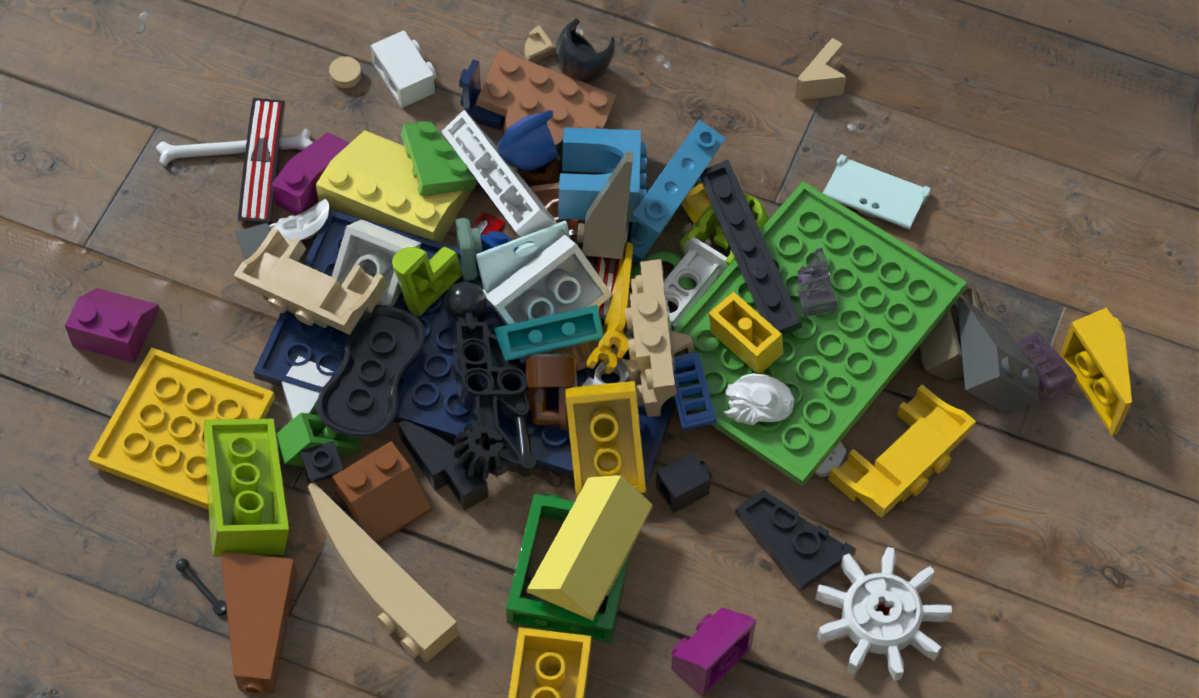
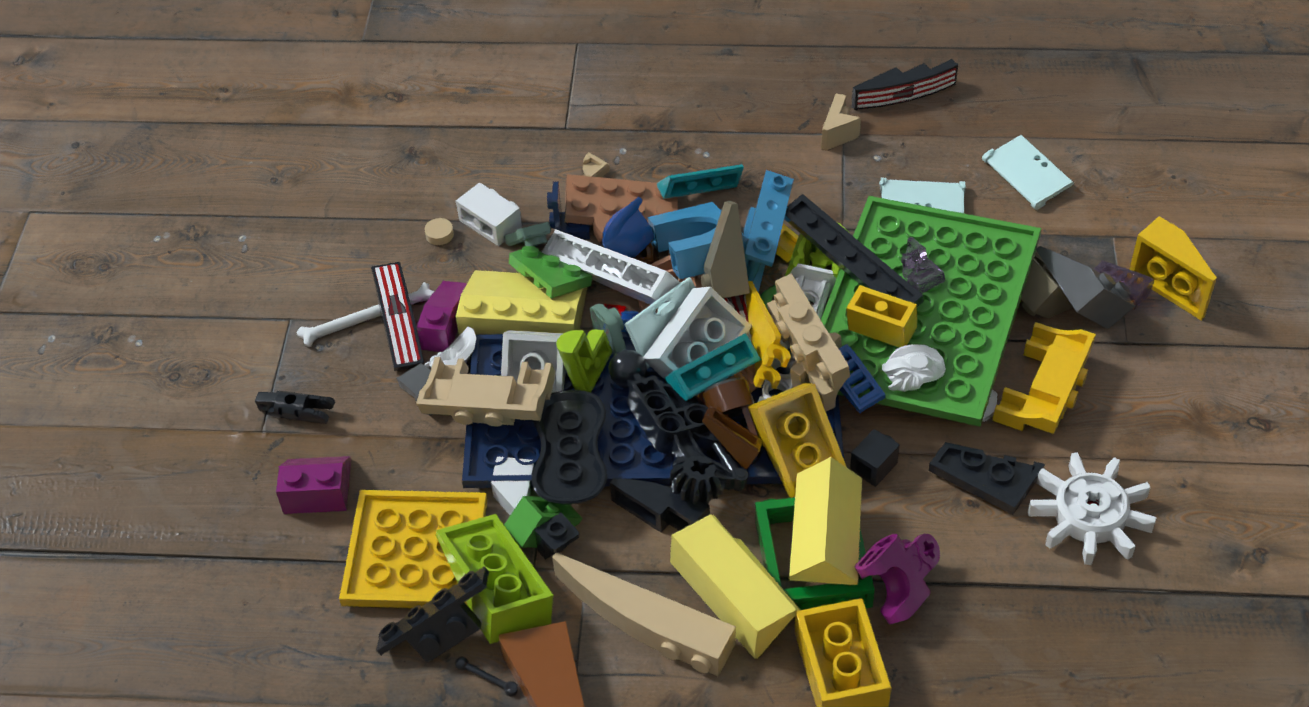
camera: 15 degrees left, 10 degrees down
(123, 230) = (295, 405): none -> black hinge
(171, 518) = (439, 622): none -> black bracket
(381, 493) = (618, 543): dark orange slope -> none
(434, 109) = (530, 235): none -> sand green piece
(474, 573) = (732, 583): none -> light yellow slope
(536, 416) = (736, 439): none -> reddish brown slope
(578, 57) = (634, 165): black piece -> none
(639, 102) = (700, 181): none -> teal slope
(650, 617) = (902, 569): none -> magenta piece
(713, 649) = (966, 579): magenta slope -> none
(908, 48) = (898, 87): none -> slope
(1007, 207) = (1031, 178): none -> light aqua door

